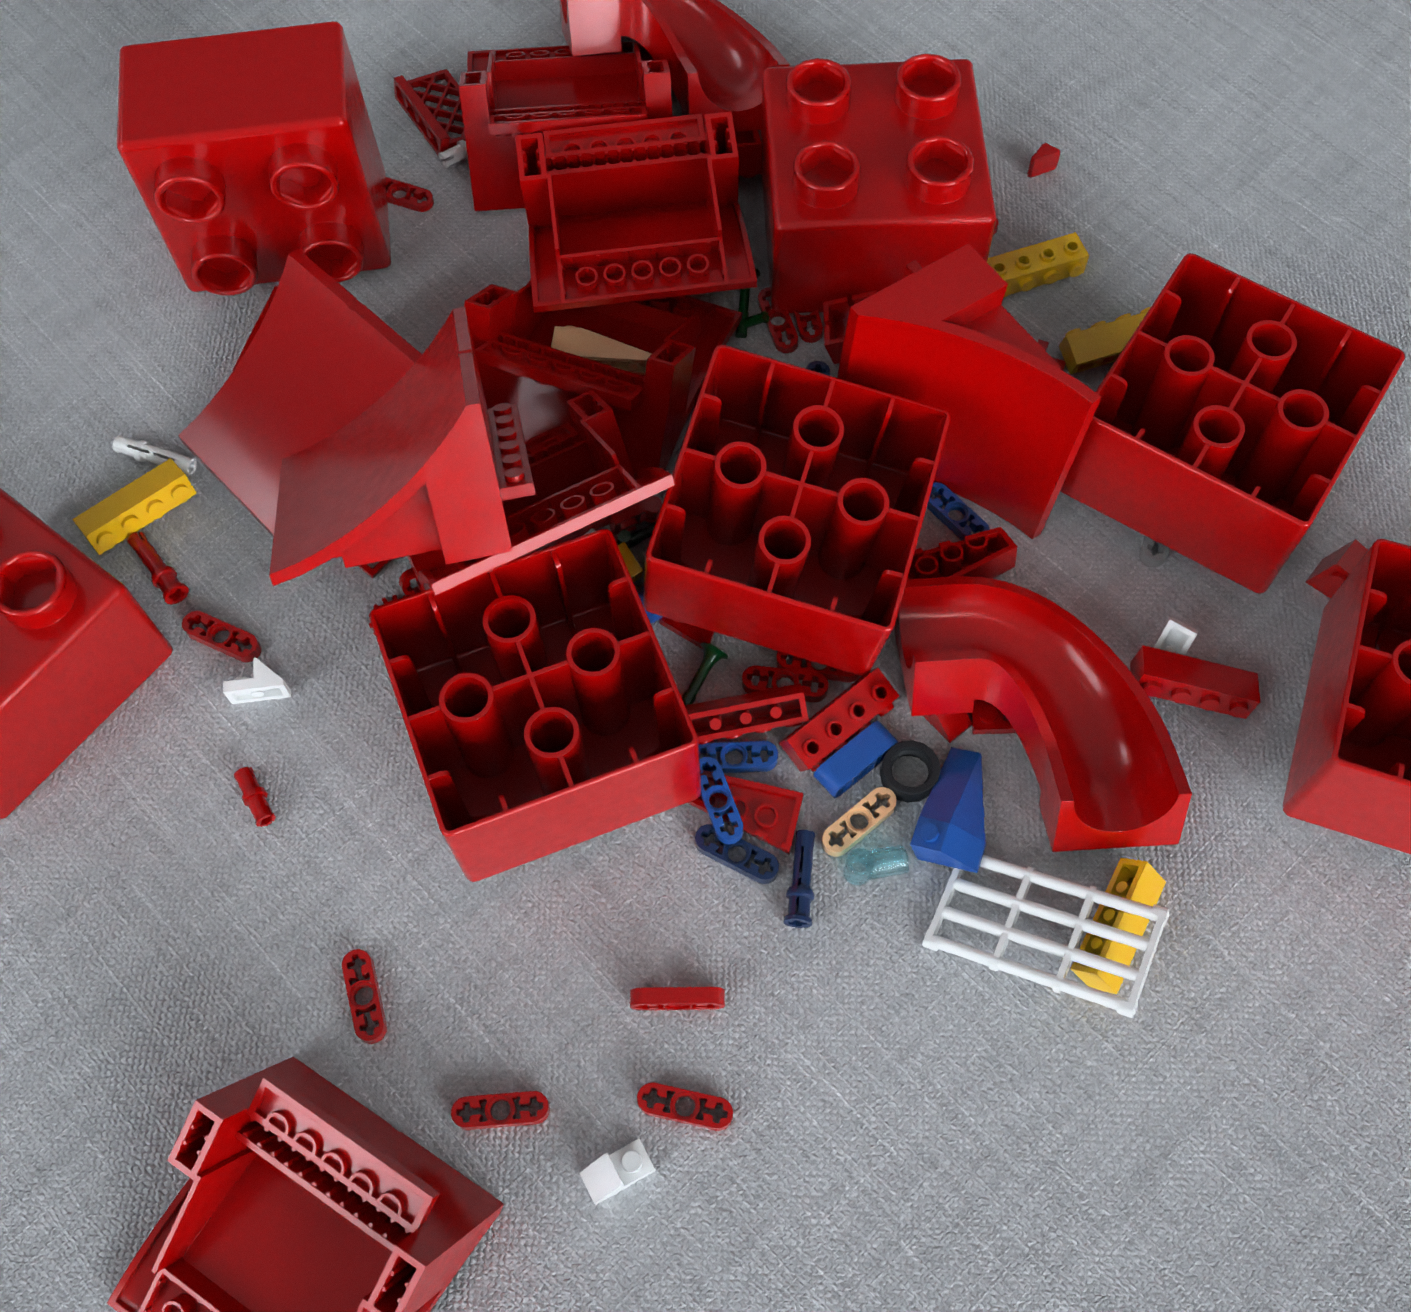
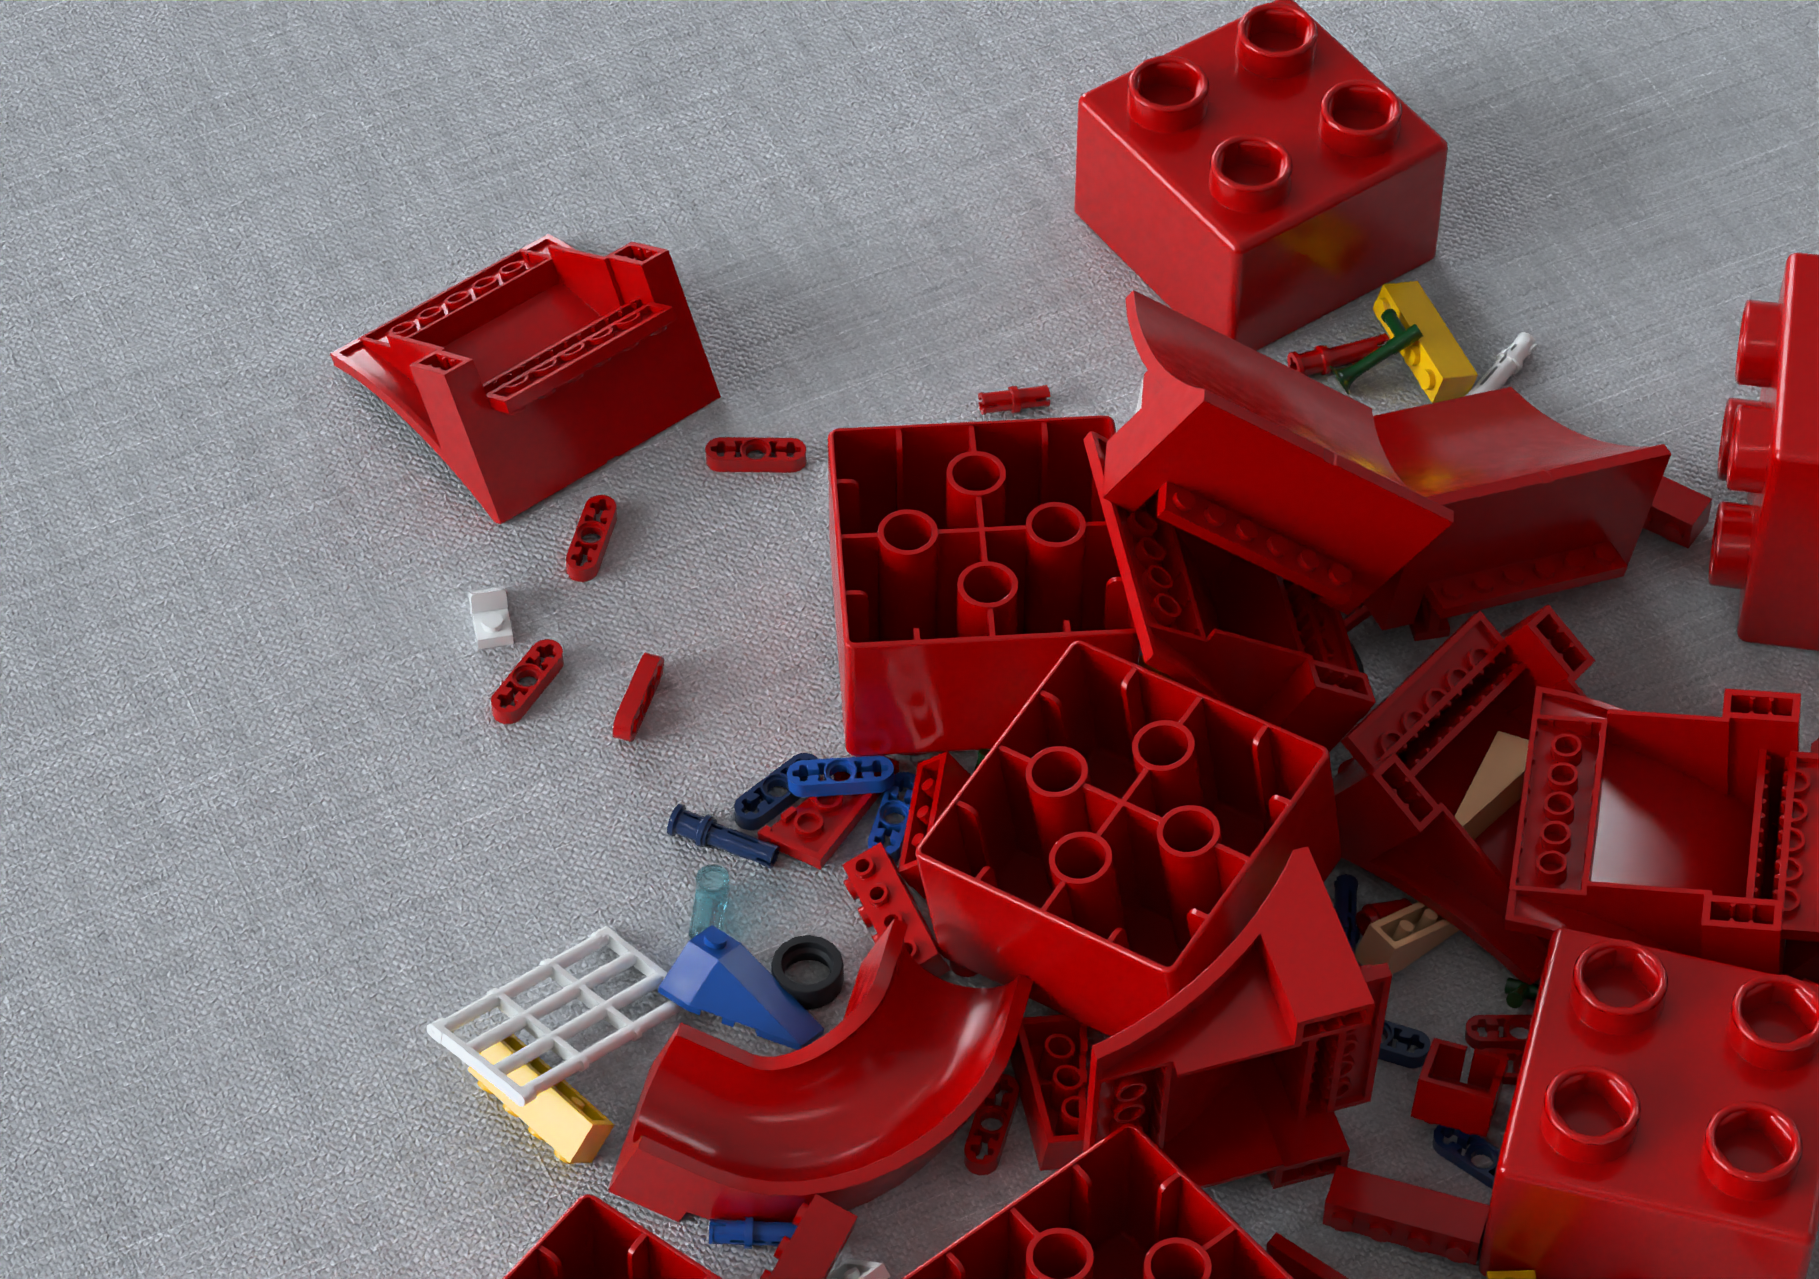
camera: 105 degrees right, 15 degrees down
(147, 508) = (1402, 339): none -> dark green piece
(836, 828) = (769, 896): light nougat beam -> none
(855, 759) = (841, 921): blue beam -> none

